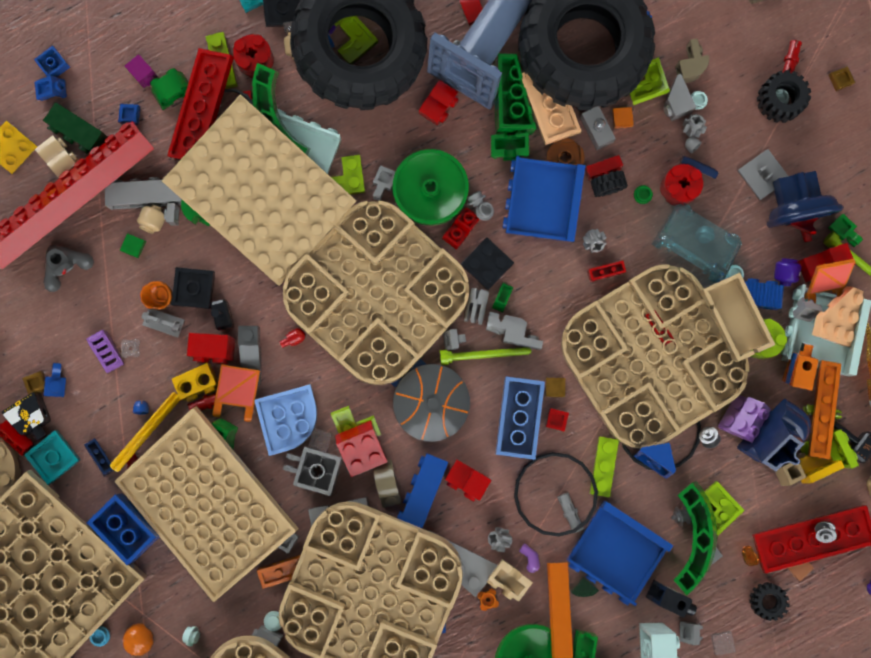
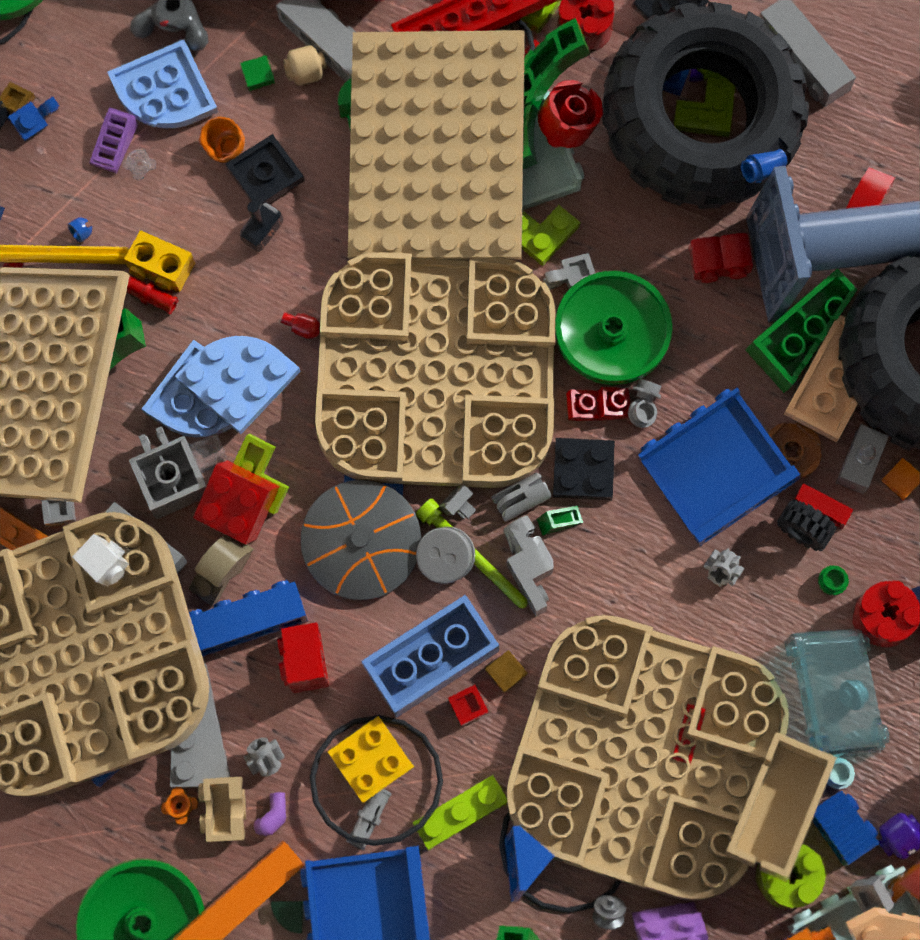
camera: 50 degrees right, 10 degrees down
(99, 301) = (164, 88): none -> light blue plate
(162, 322) = (198, 172): light grey hinge -> none
(171, 214) = (329, 82): light grey plate -> none
(211, 347) = (212, 243): red brick -> none
(238, 388) = (190, 310): coral flag -> none
(250, 348) = (242, 293): dark grey slope -> none
(295, 394) = (238, 378): none -> light blue plate
(302, 110) = (569, 114): none -> red brick
(340, 543) = (102, 560): none -> white brick
(421, 43) = (759, 166): none -> blue cone
(475, 368) = (445, 555): none -> light grey head
(510, 145) = (741, 371): green cylinder -> none
(545, 489) = (370, 759): none -> yellow hinge
(606, 271) = (700, 613): red piece -> none

